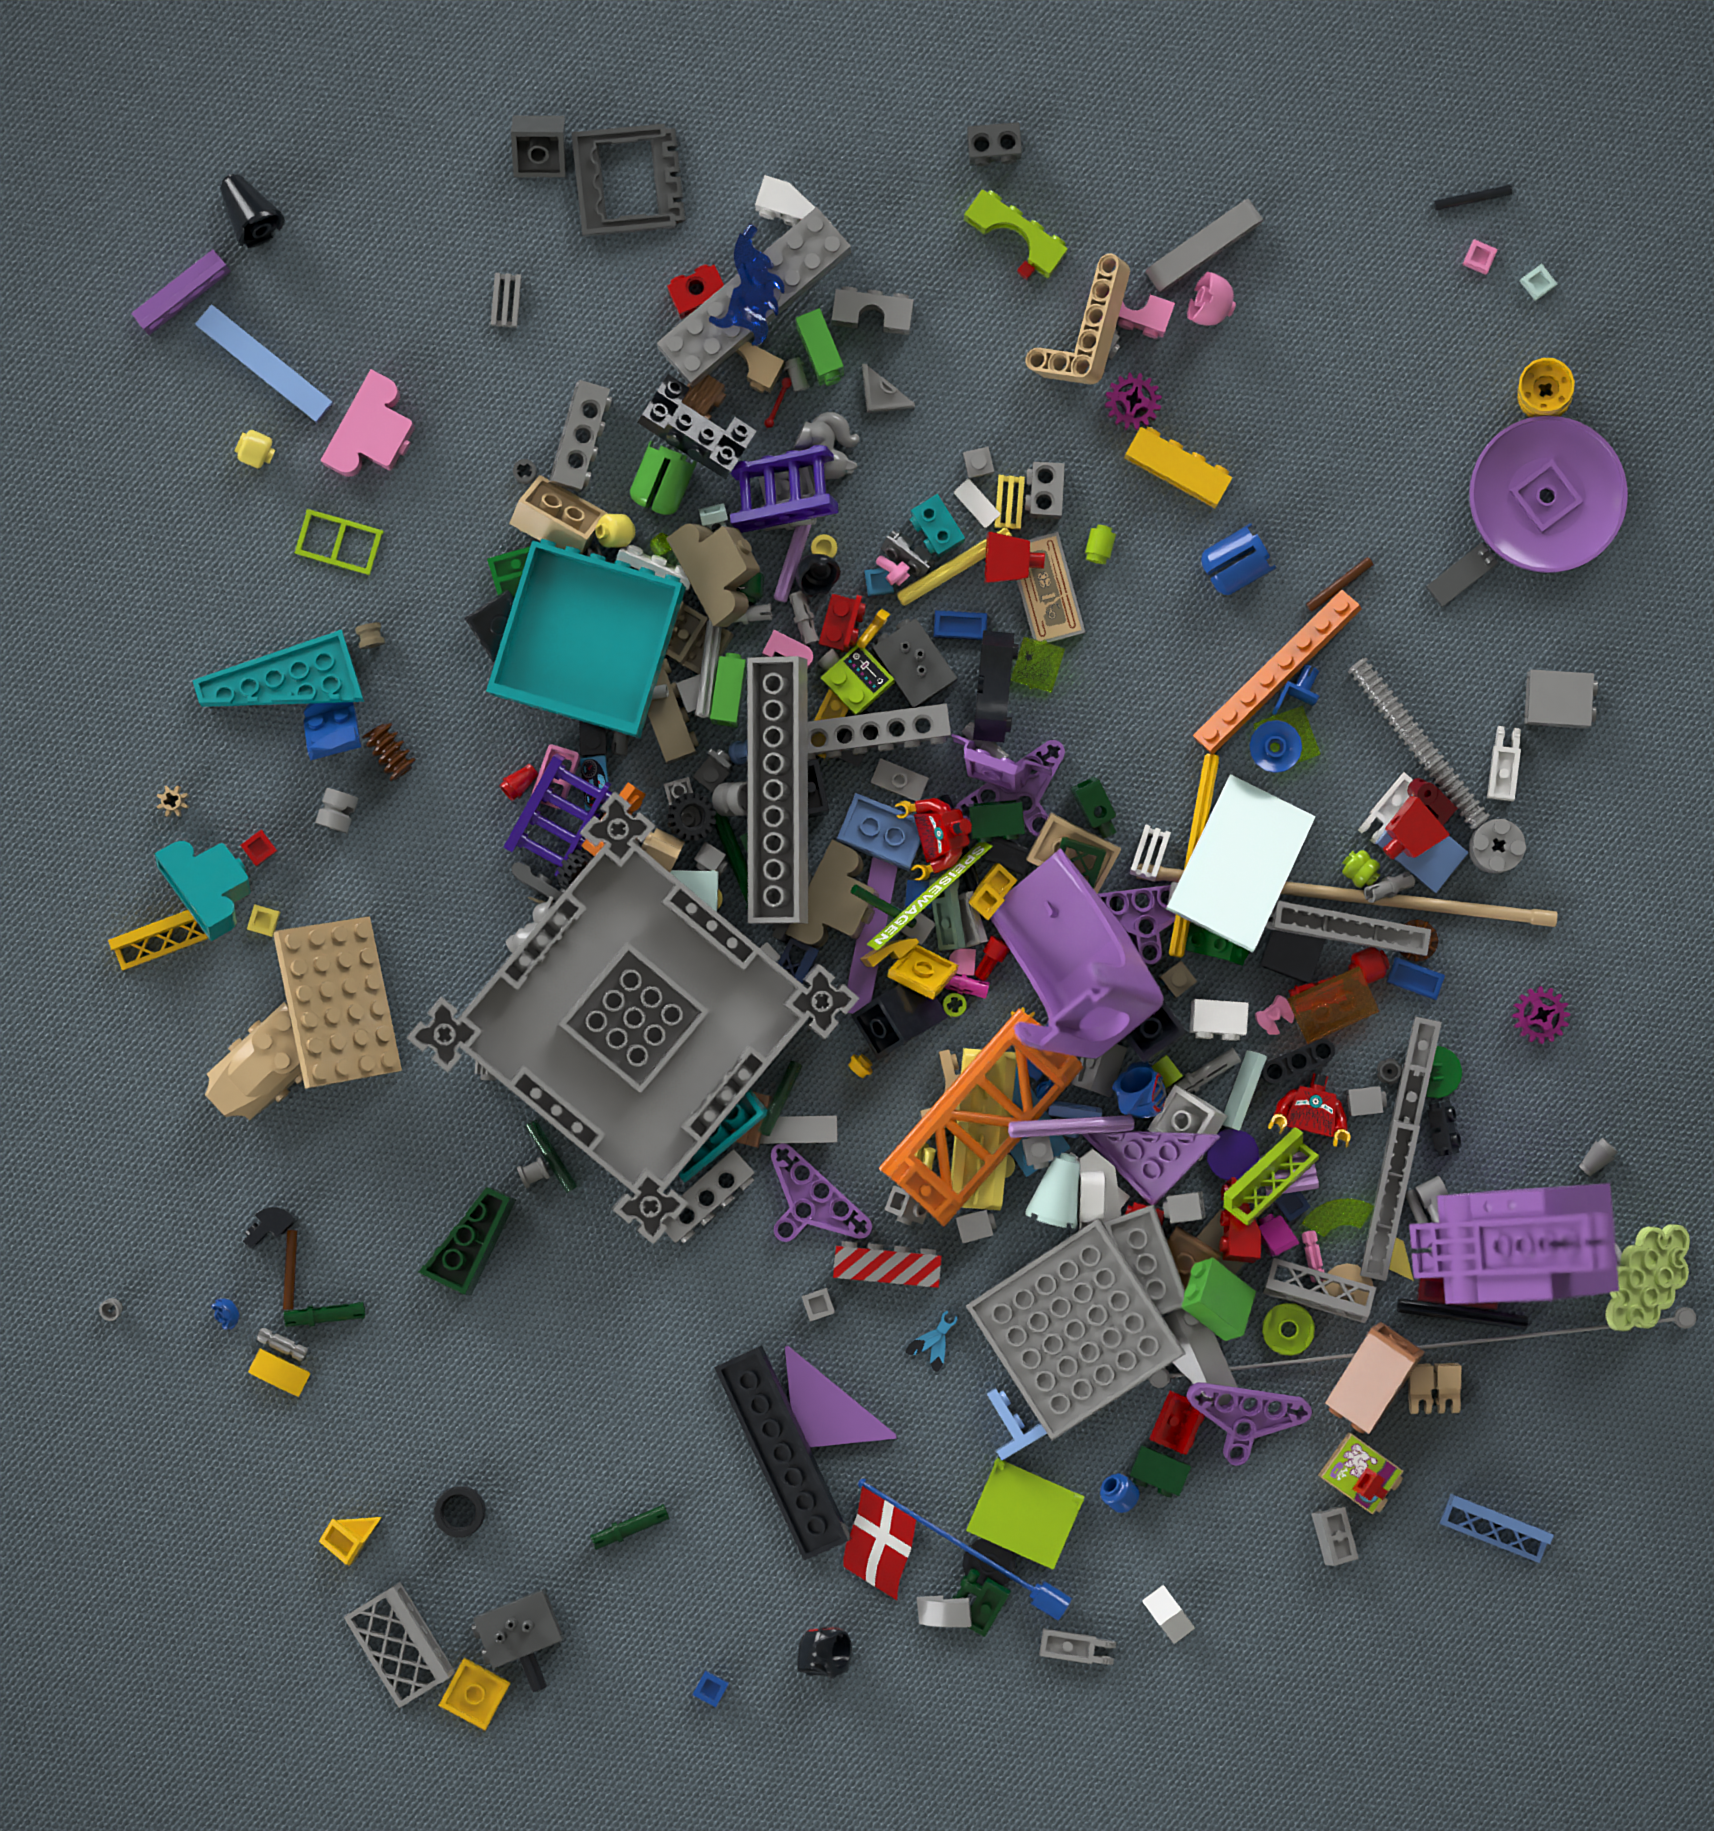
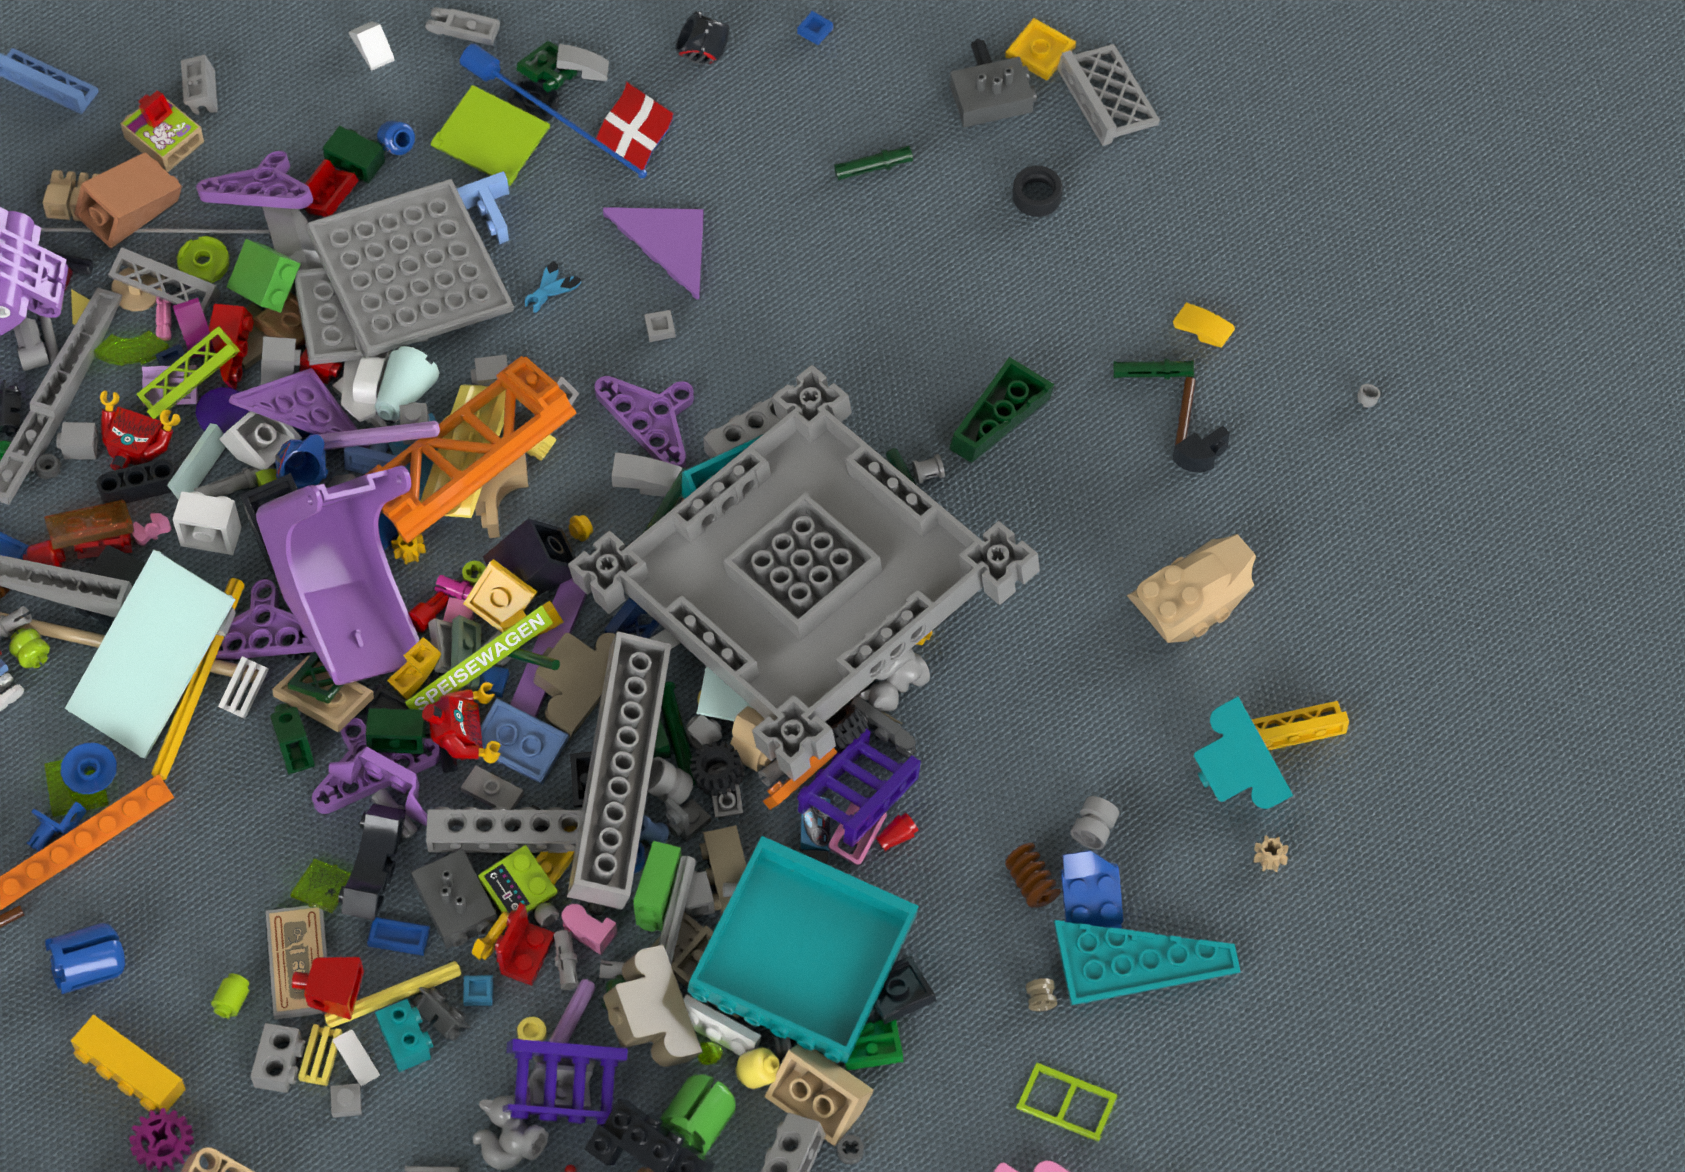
camera: 175 degrees left, 25 degrees down
(226, 1313) = (1251, 379): blue plate -> none
(259, 848) = (1181, 795): red tile -> none
(263, 920) = (1183, 732): light yellow tile -> none
(282, 1344) = (1199, 349): light grey axle -> none
(337, 1001) = (1111, 632): tan plate -> none
(348, 1537) = (1147, 179): yellow slope -> none
(713, 515) = (647, 1075): light aqua tile -> none
(783, 1453) = (715, 205): black plate -> none
(817, 574) = (544, 1000): black hair -> none
(886, 1265) = (585, 349): brick -> none
(897, 573) = (454, 988): bright pink plate -> none
(1177, 979) = (242, 565): dark tan brick -> none

